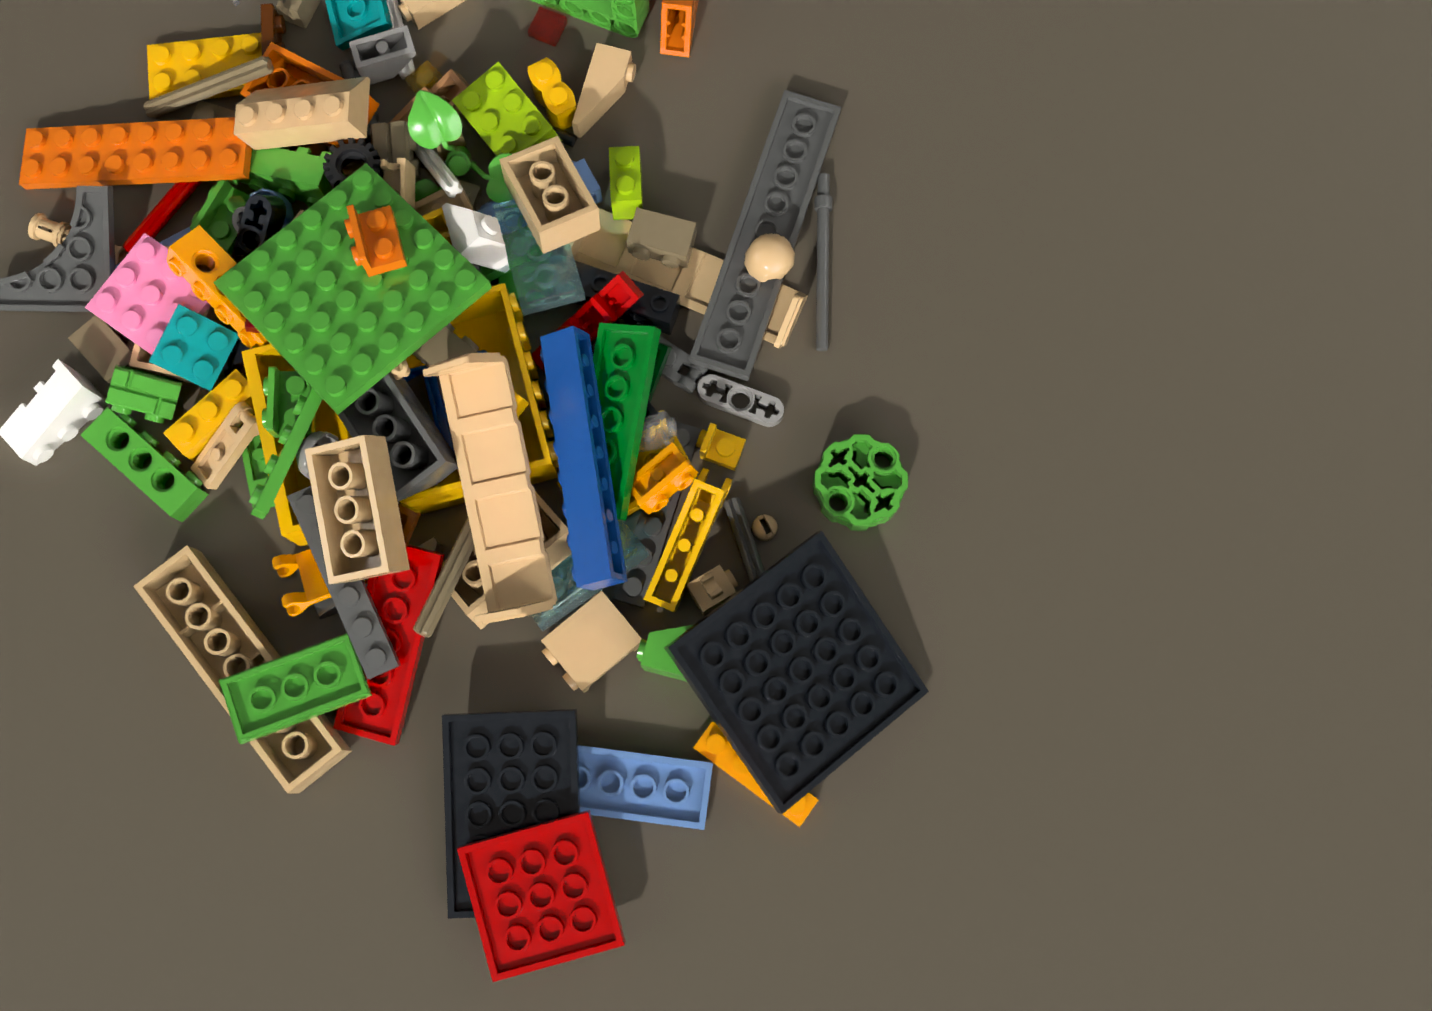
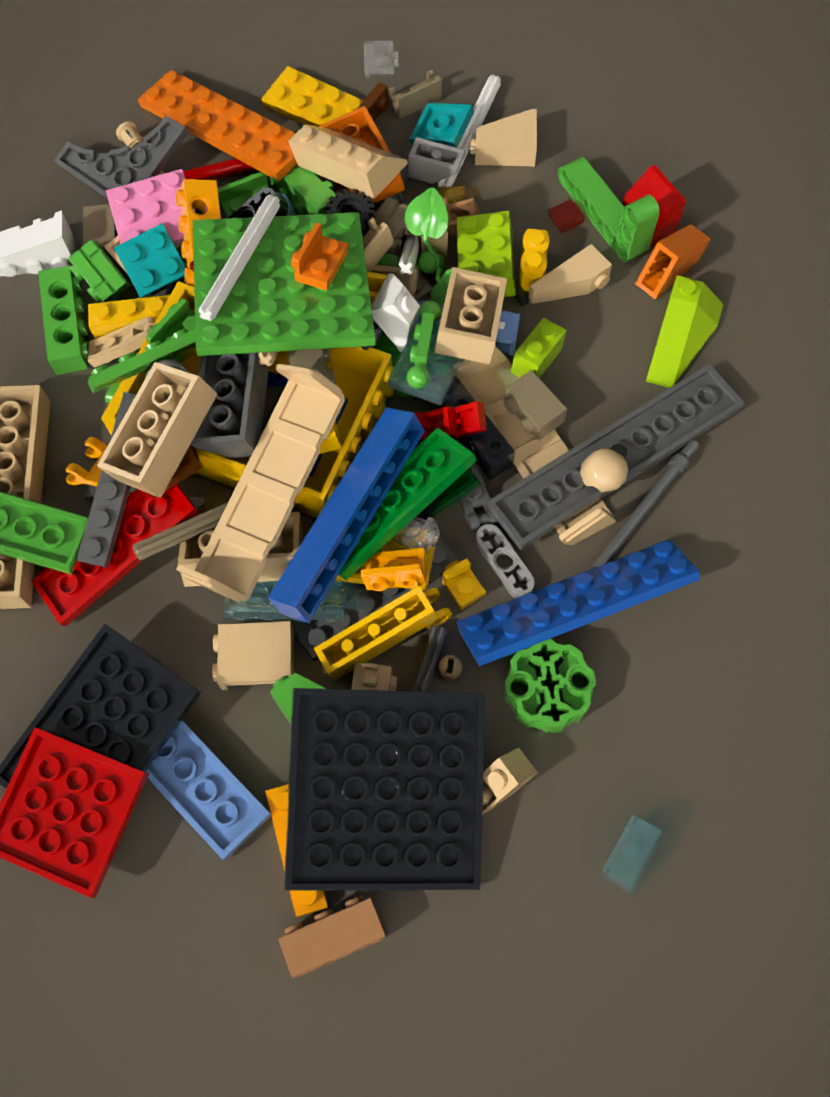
camera: 40 degrees right, 10 degrees down
(209, 87) = (303, 110): dark tan axle -> none
(298, 290) = (239, 258): none -> white axle
(549, 287) = (418, 375): none -> bright green plate
(737, 68) = (686, 326): none -> lime wedge
(829, 393) = (576, 601): none -> blue plate
(841, 819) = (331, 936): none -> medium nougat brick
(884, 584) = (505, 778): none -> tan slope
(1026, 571) = (632, 854): none -> clear light blue hinge

